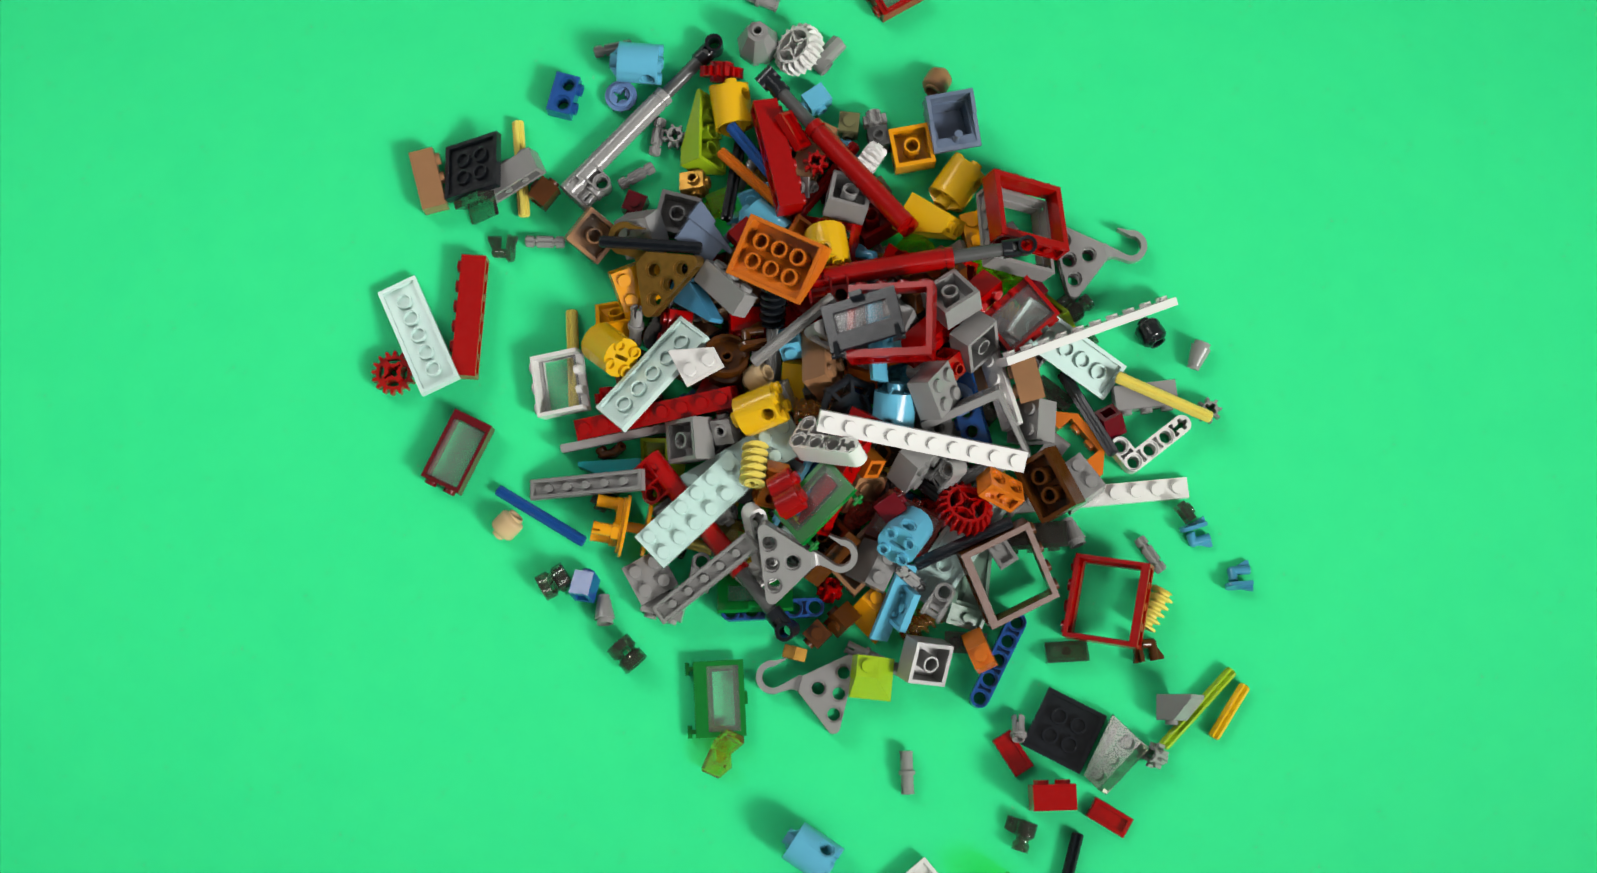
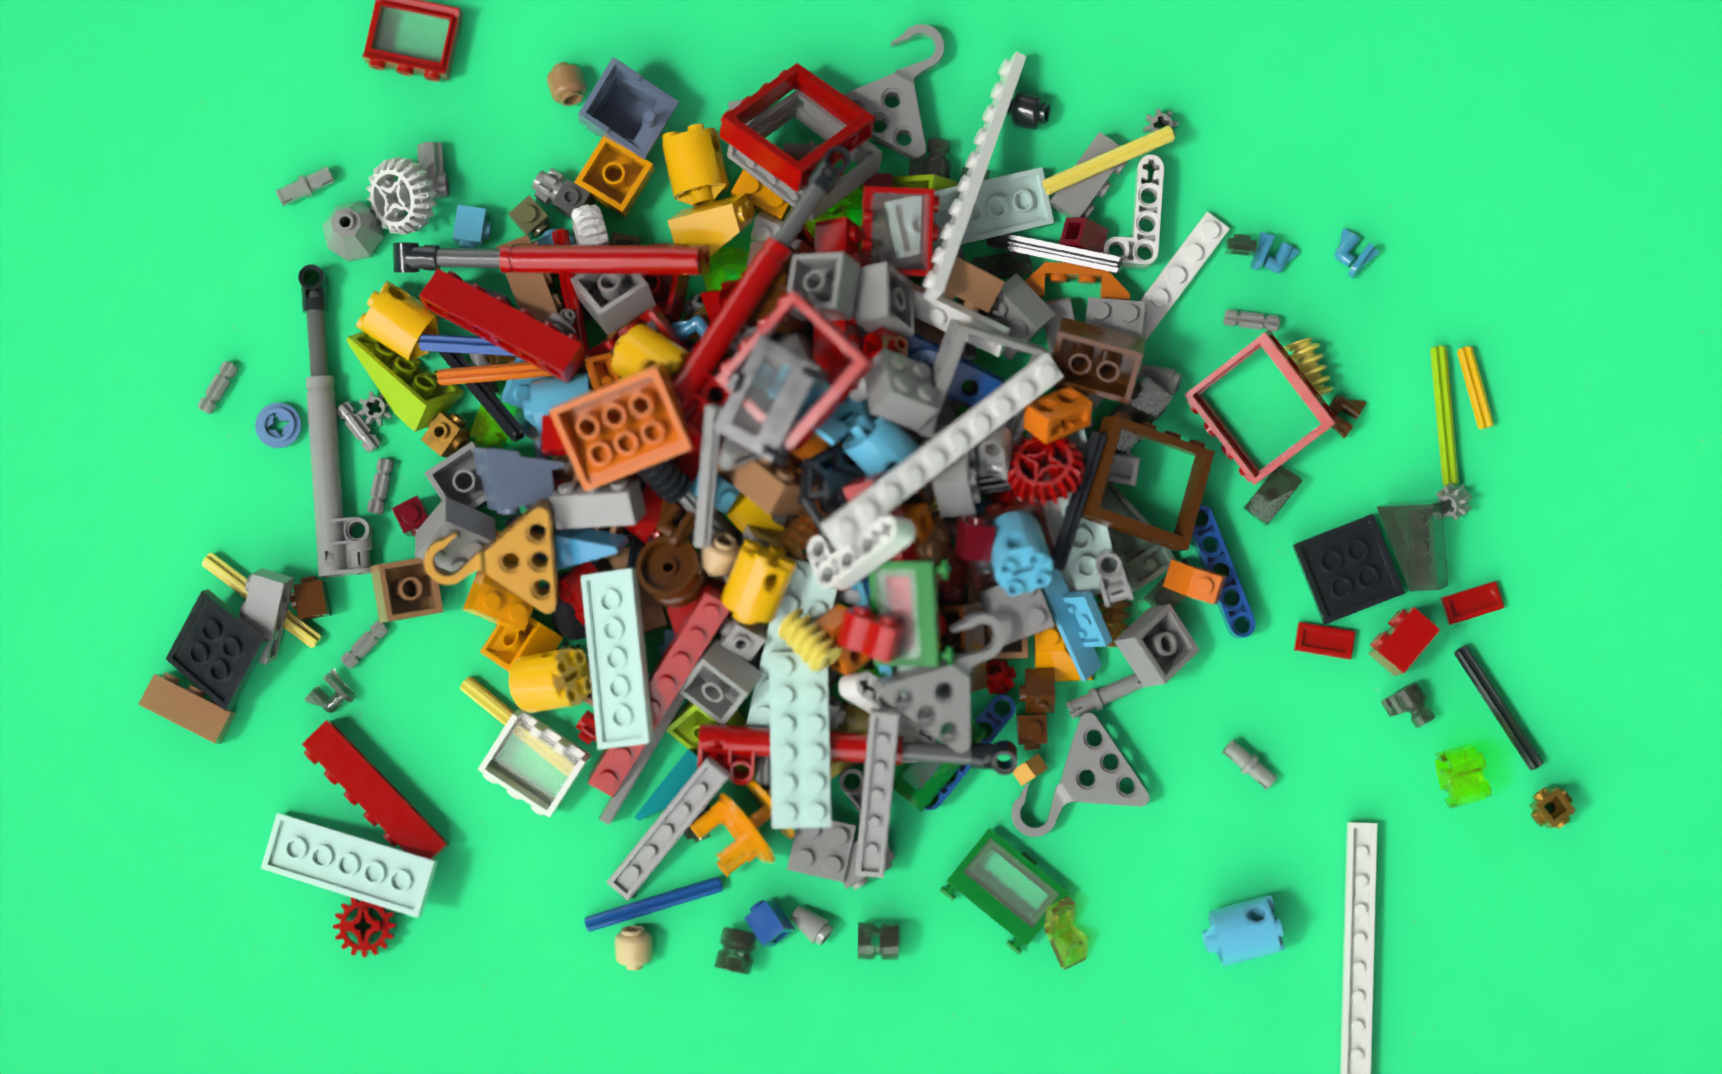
camera: 50 degrees left, 5 degrees up
(457, 453) = (510, 933): window -> none
(480, 204) = (266, 680): clear smoke panel -> none
(560, 95) = (219, 488): blue brick -> none
(614, 452) = (655, 772): reddish brown arm -> none
(636, 324) = (546, 629): light grey pin -> none
(637, 63) = (260, 376): medium azure cylinder -> none
(650, 244) = (481, 541): black axle -> none
(696, 363) = (650, 606): white wing -> none
(721, 70) = (352, 298): red gear -> none
(793, 130) = (490, 283): red tile -> none
(816, 157) = (541, 286): red gear -> none
(871, 677) = (1125, 715): lime slope -> none
(910, 578) = (1064, 585): light grey axle -> none
(1018, 729) = (1309, 616): light grey pin -> none
(1176, 707) = (1426, 436): light grey slope -> none
(1198, 354) = (1094, 83): light grey cone -> none

